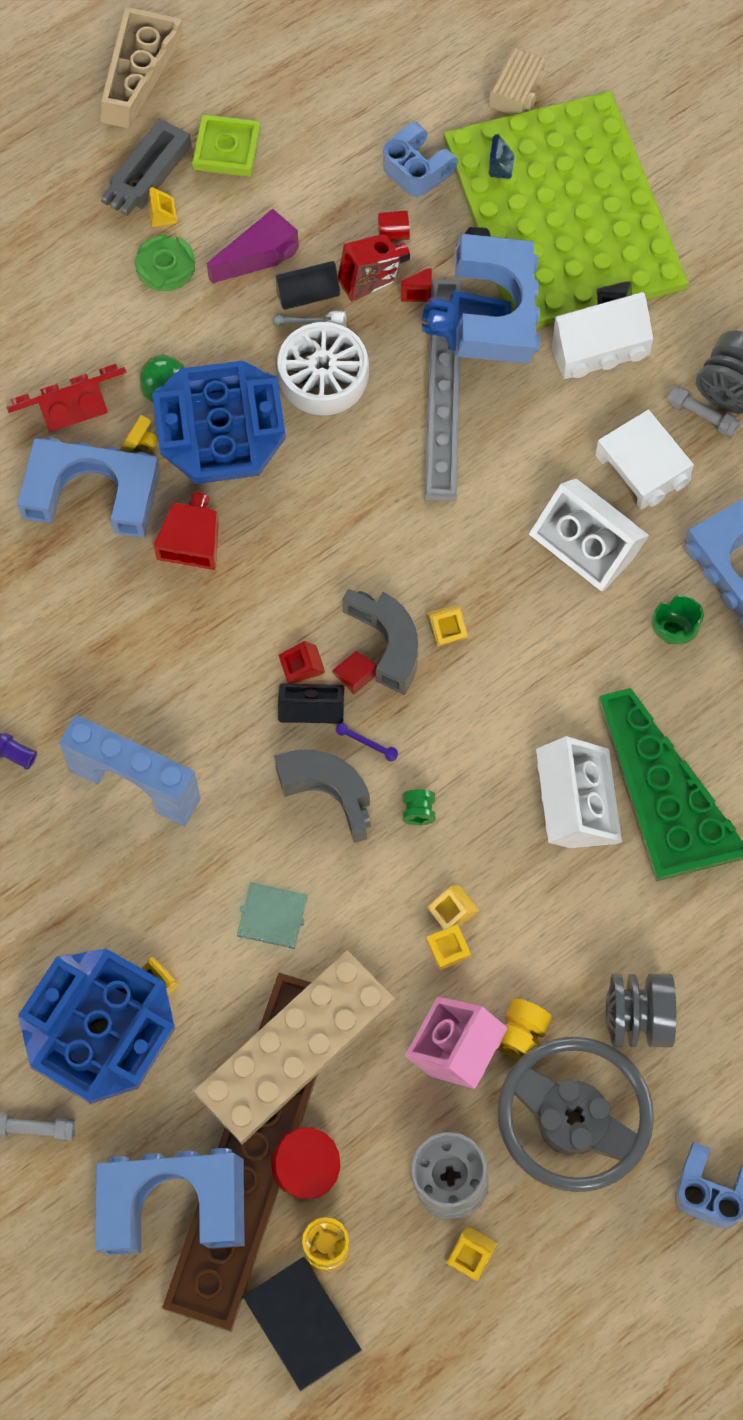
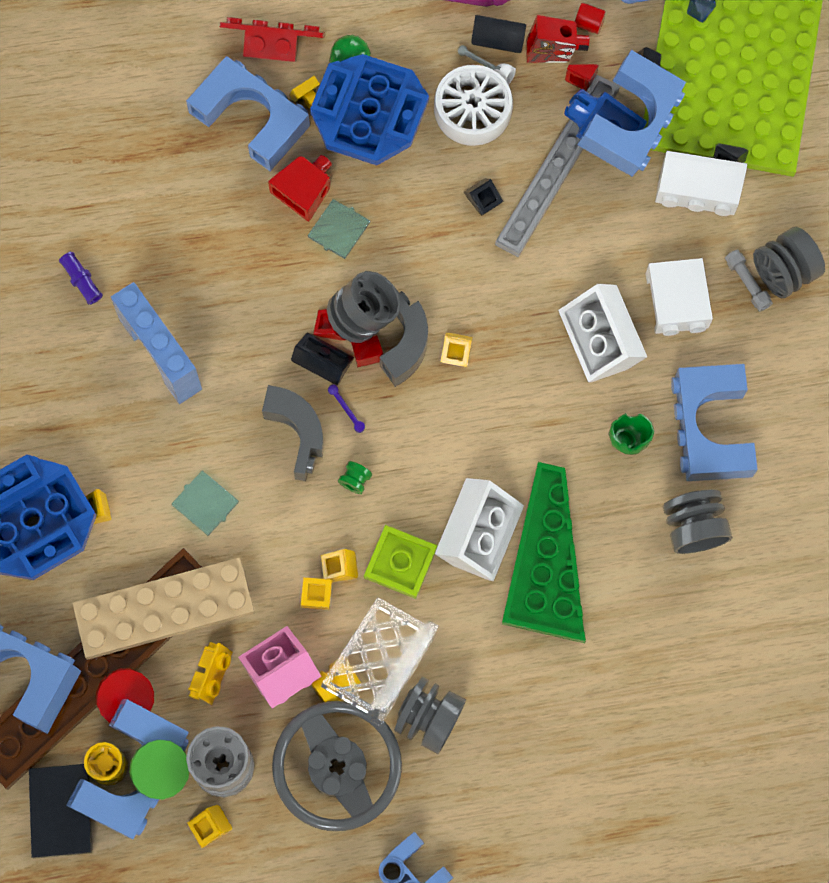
camera: 25 degrees right, 5 degrees up
(252, 561) = (339, 229): none -> clear light blue piece
(330, 625) = (363, 307): none -> dark grey wheel
(375, 1192) = (126, 812): none -> medium blue arch
(380, 1074) = (207, 685): none -> yellow hinge
(385, 455) = (483, 196): none -> black slope
(391, 1217) = (159, 769): none -> bright green tile
(516, 870) = (400, 561): none -> lime plate
(586, 986) = (398, 676): none -> clear fence

